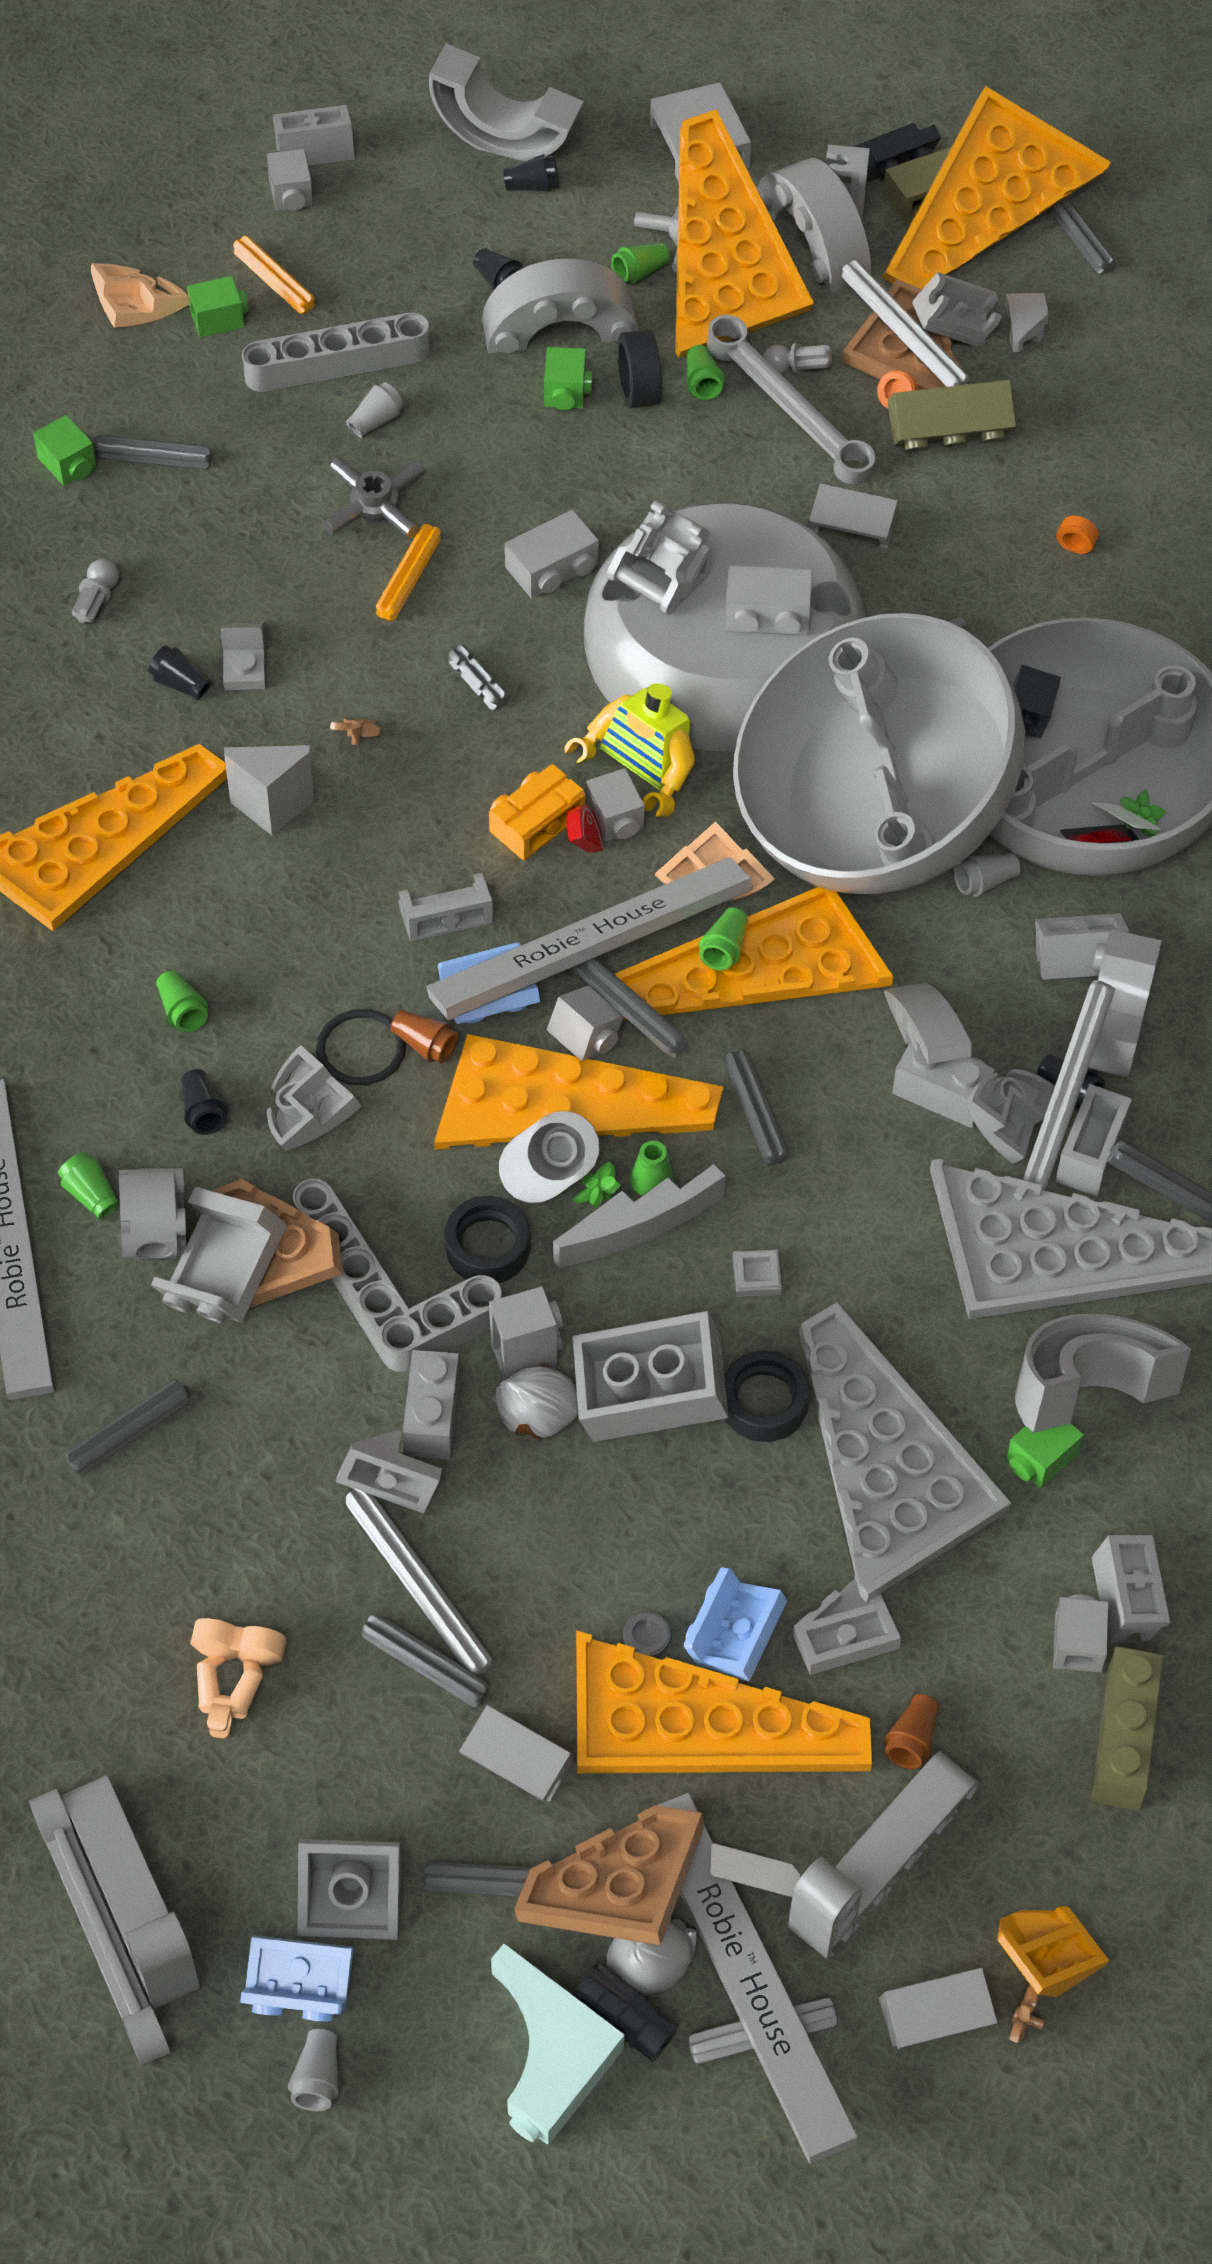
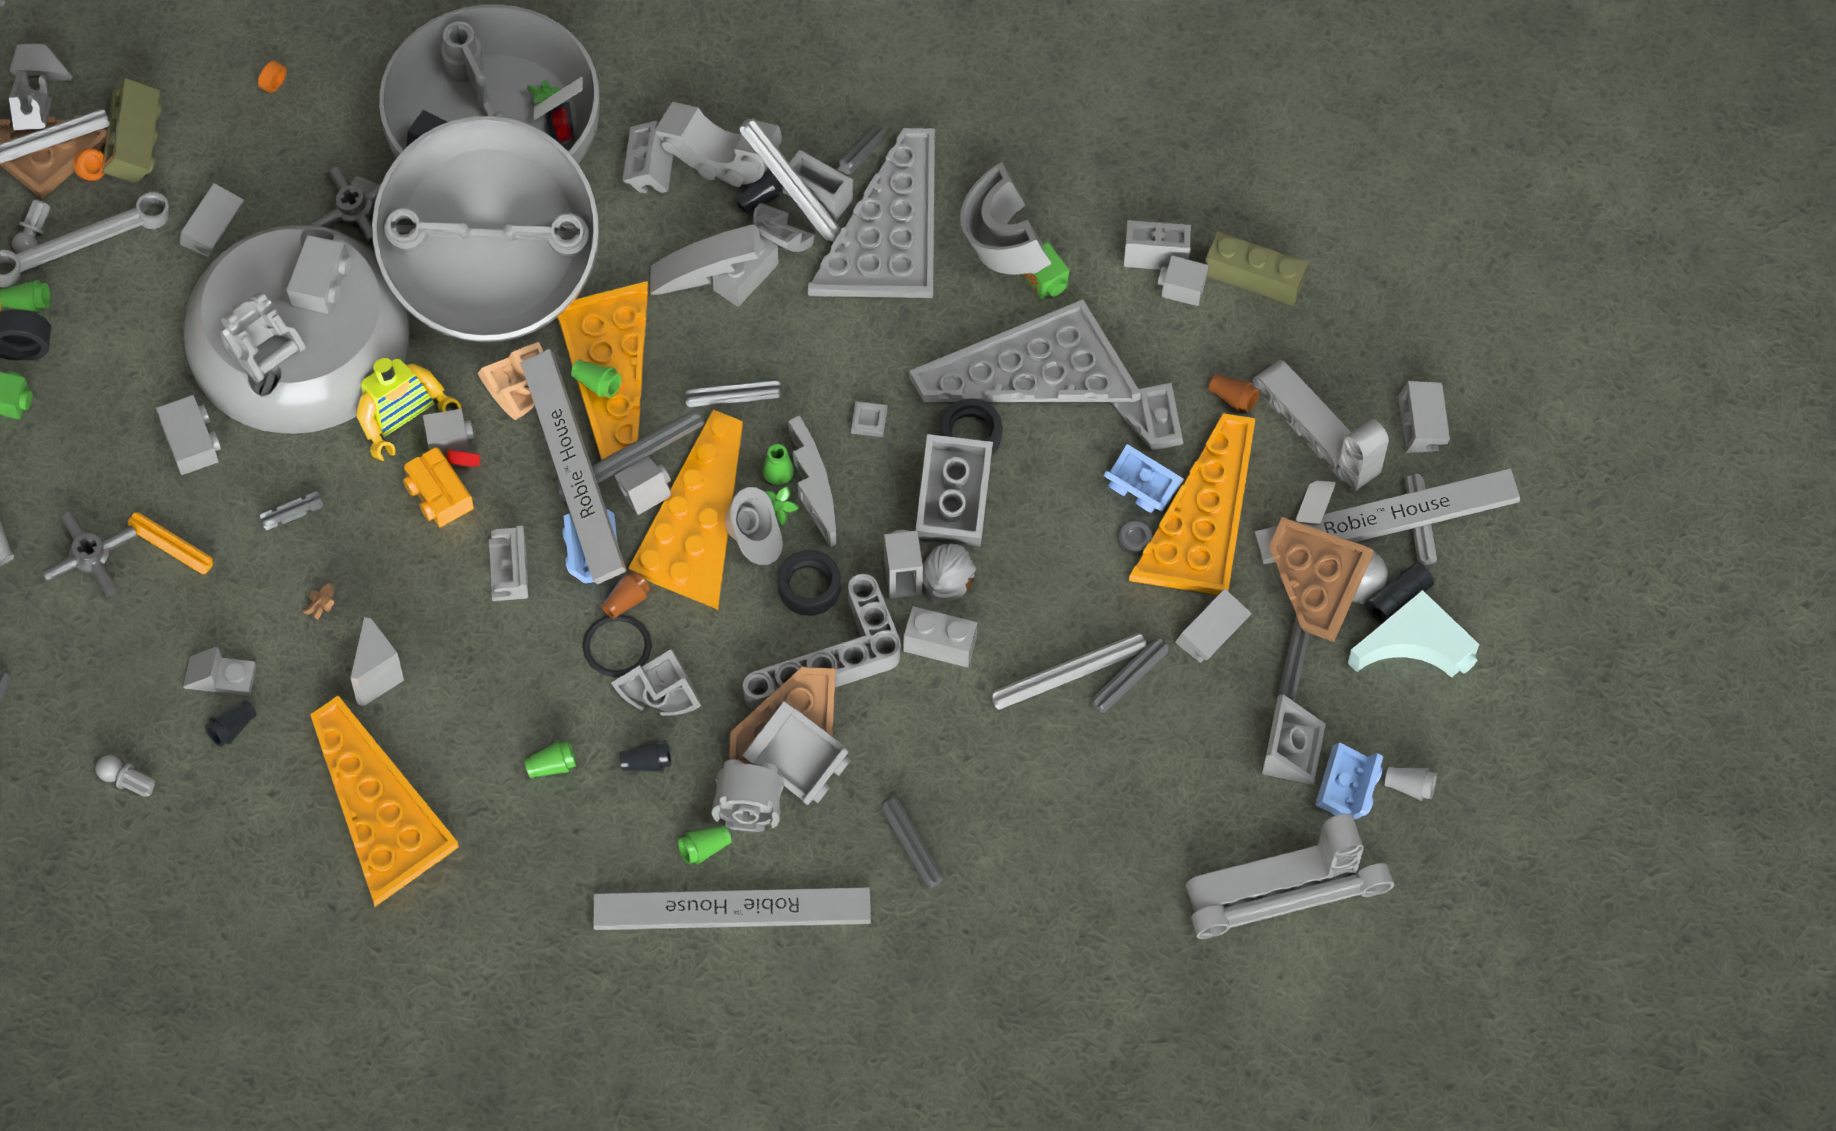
camera: 80 degrees left, 5 degrees up
(224, 1642) = (1105, 781): light nougat piece -> none
(381, 1471) = (990, 672): light grey slope -> none
(1023, 2018) = (1435, 369): medium nougat plant -> none
(1050, 1948) = (1391, 346): light orange slope -> none

